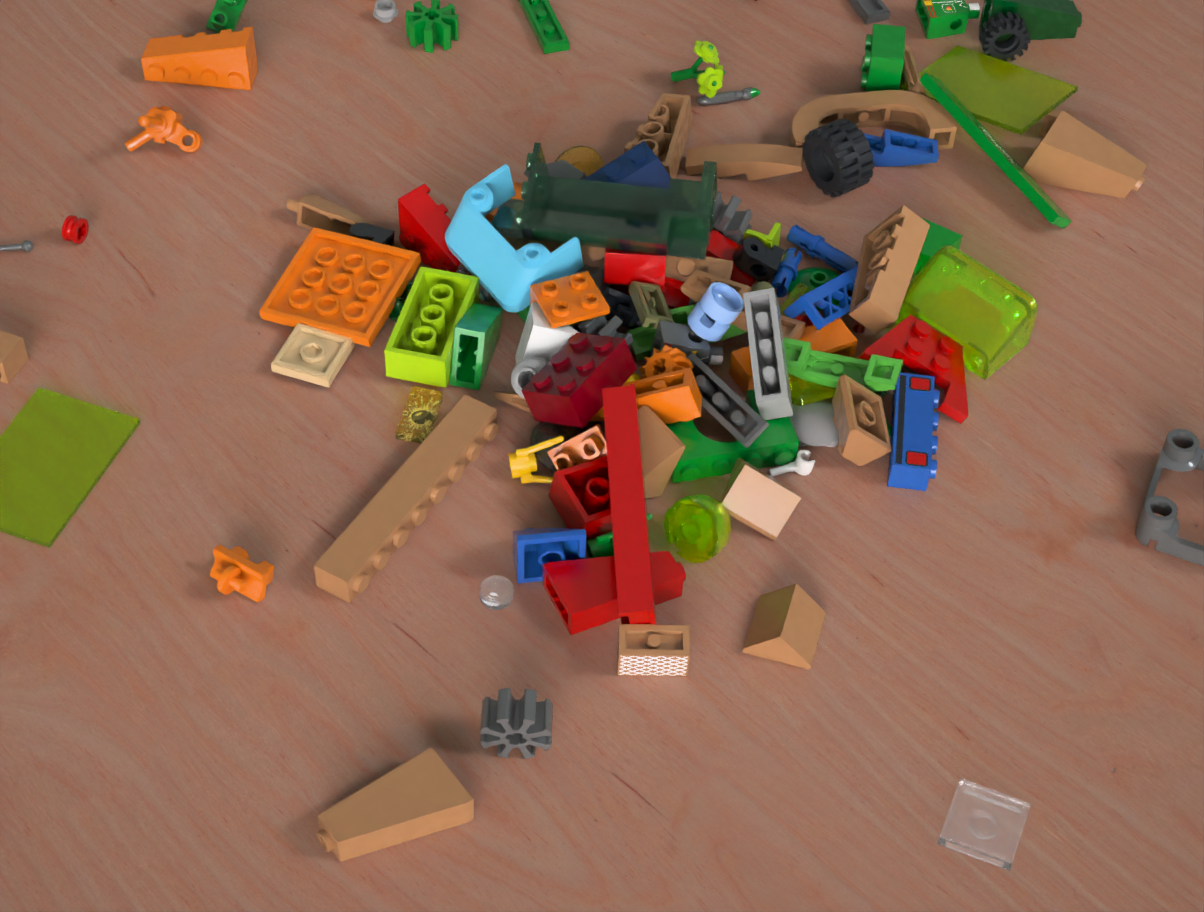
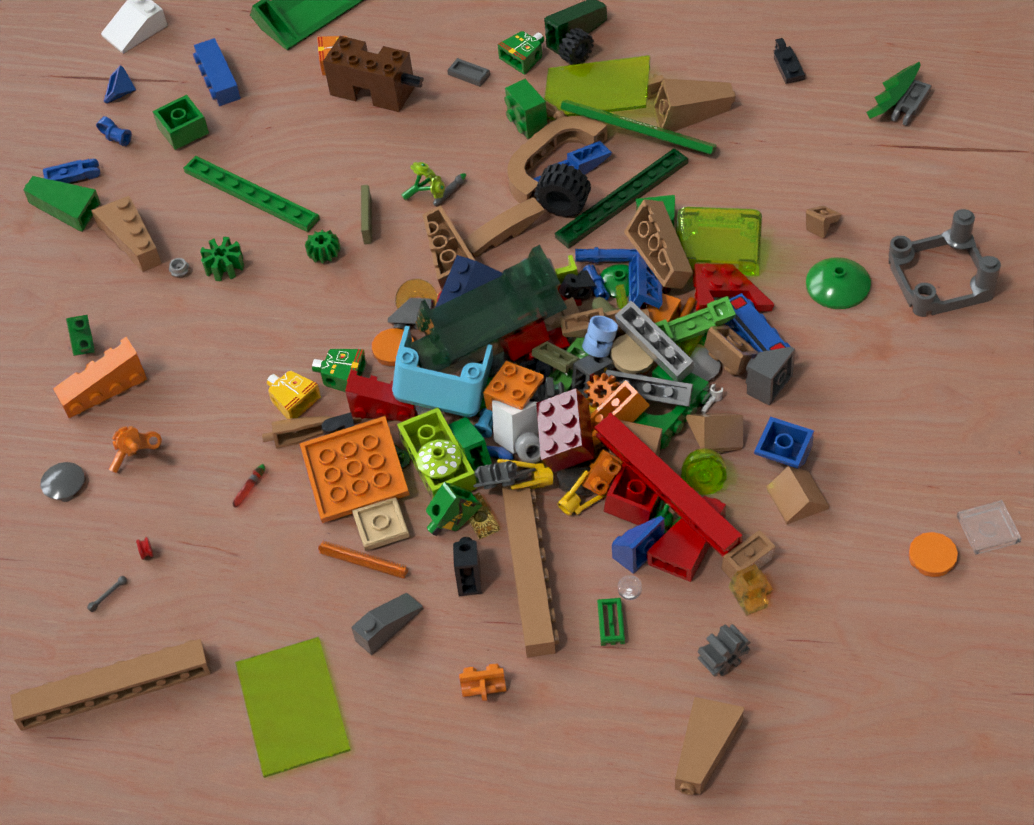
camera: 30 degrees left, 5 degrees up
(75, 127) = (62, 481): none -> dark grey dish
(207, 447) = (384, 622): none -> dark grey slope
(251, 233) = (247, 487): none -> clear red piece
(260, 377) = (363, 560): none -> orange axle
(345, 449) = (467, 556): none -> black torso
(362, 183) = (292, 393): none -> yellow torso
(390, 382) = (451, 508): none -> green torso
(423, 324) = (441, 465): none -> lime dish
(444, 183) = (337, 366): none -> green torso
(452, 607) = (612, 638): none -> green tile
(469, 380) = (499, 473): none -> dark grey hinge
(504, 369) = (499, 452): none -> blue arm
(511, 334) = (485, 423): none -> dark azure bush
(517, 417) = (540, 477): none -> yellow plant
(540, 70) = (322, 246): none -> green gear
(614, 68) = (366, 214): none -> olive tile
(622, 685) = (750, 589): none -> clear yellow brick
(731, 357) = (629, 356): none -> tan tile
(820, 560) = (785, 443): none -> blue slope
(881, 477) = (769, 373): none -> dark grey slope
(881, 804) = (933, 554): none -> orange tile
(935, 209) = (621, 198): none -> dark green tile
(1072, 444) = (838, 283): none -> green dish
(1113, 360) = (819, 219): none -> medium nougat slope

